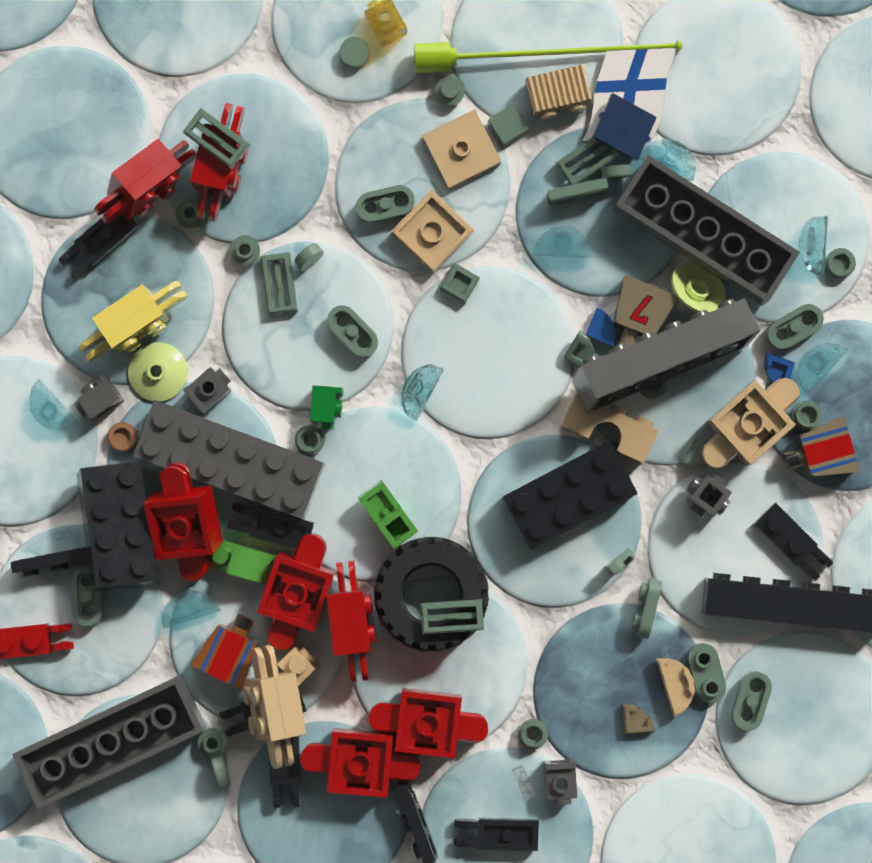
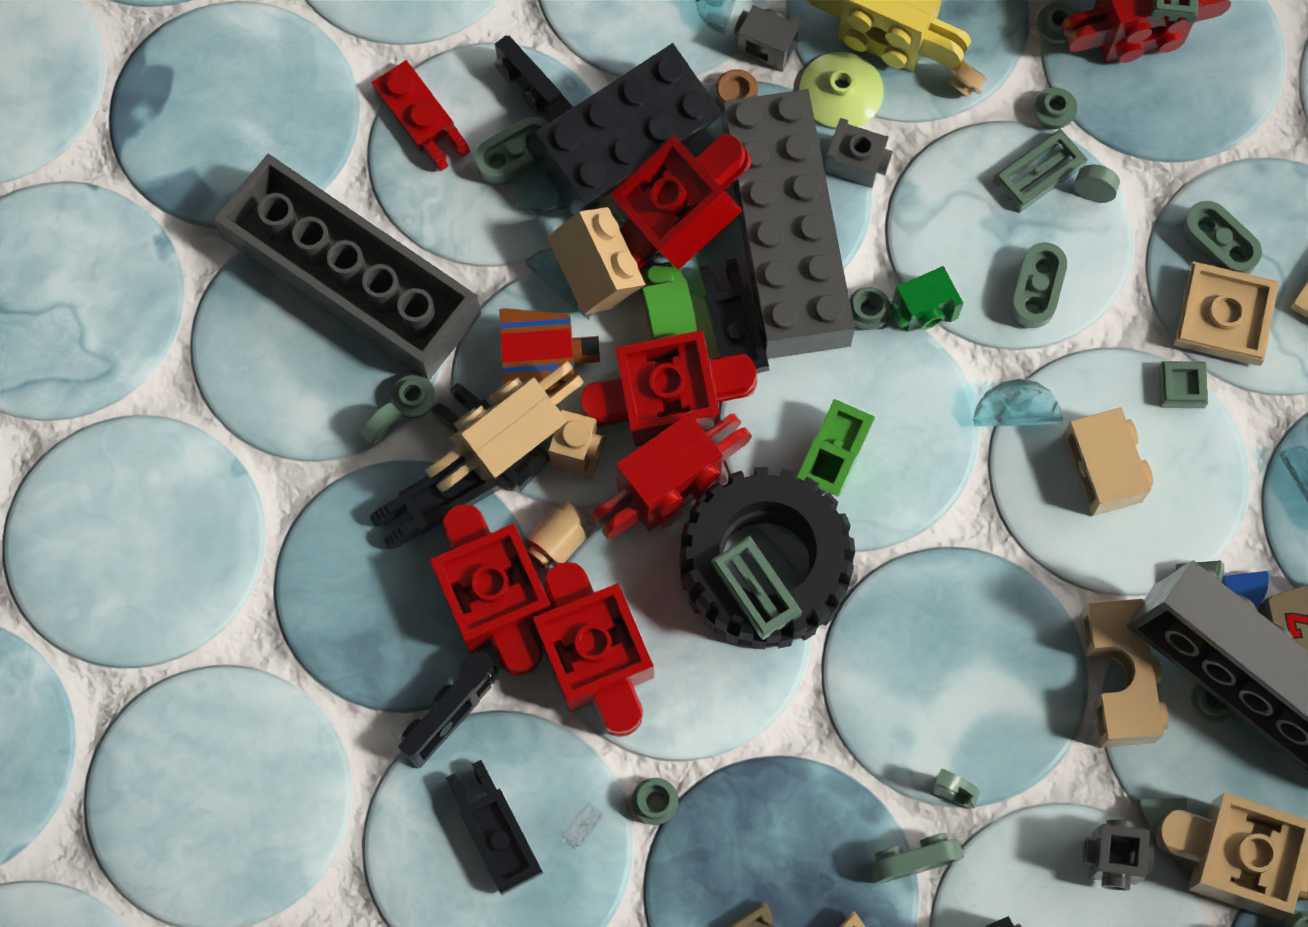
camera: 60 degrees right, 15 degrees down
(193, 592) = (596, 260): none -> tan brick
(196, 292) = (966, 78): none -> tan plate
(348, 705) = (557, 536): none -> tan brick
(483, 358) = (1108, 461): none -> tan brick
(558, 770) = (632, 872): dark grey brick -> none
(570, 495) = (1003, 669): black brick -> none

